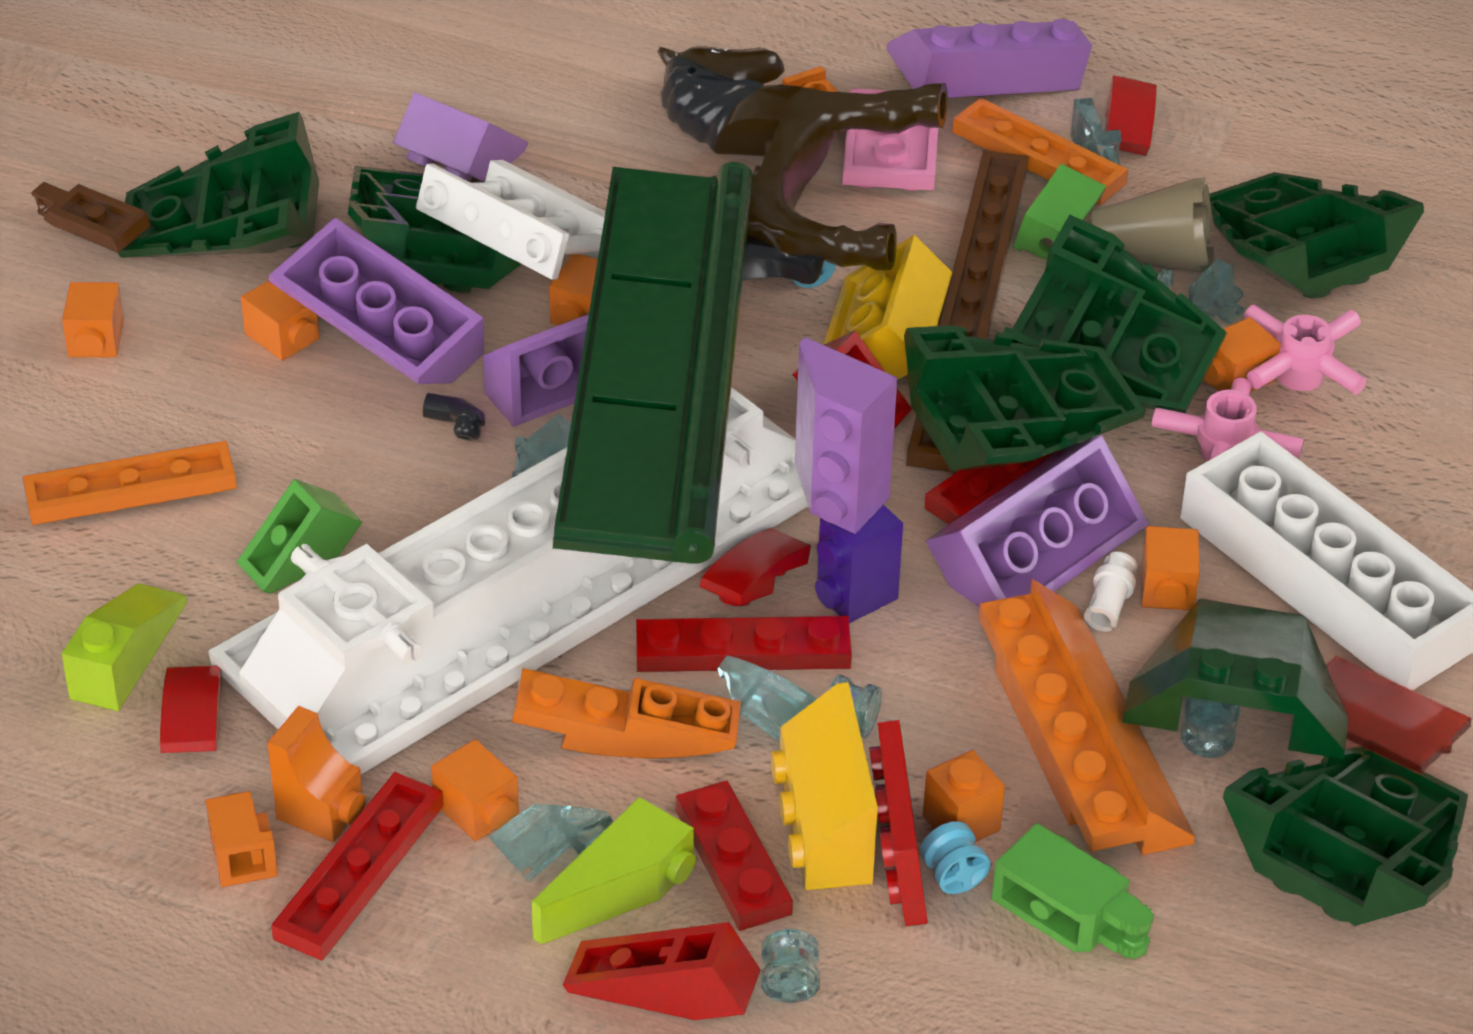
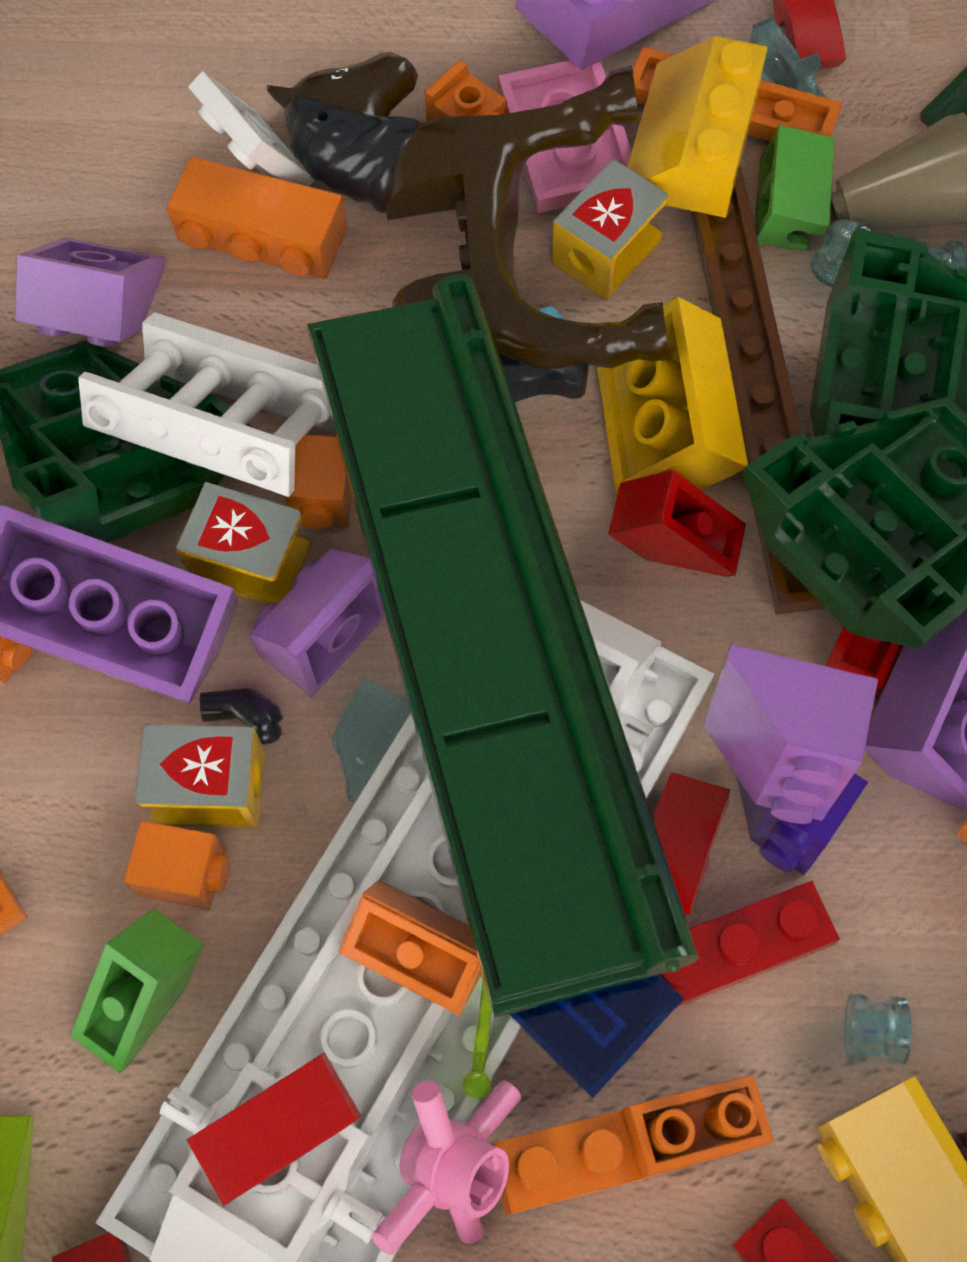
camera: 15 degrees left, 25 degrees up
(364, 478) = (177, 865): none -> orange brick
(377, 559) = (273, 1129): none -> red slope
(409, 432) = (201, 775): none -> piece
(483, 663) = (450, 1166): none -> bright pink bar
(505, 301) = (243, 543): none -> piece
(513, 522) = (413, 946): none -> orange slope
(527, 645) = (476, 1082): none -> clear neon green hinge
(612, 128) = (258, 217): none -> orange brick
(630, 74) = (252, 137): none -> white plate
(635, 622) = (600, 1029): none -> clear blue tile
(763, 695) = (772, 1046): clear light blue slope -> none
(887, 194) = (608, 229): none -> piece
(996, 150) = (699, 123): none -> yellow slope

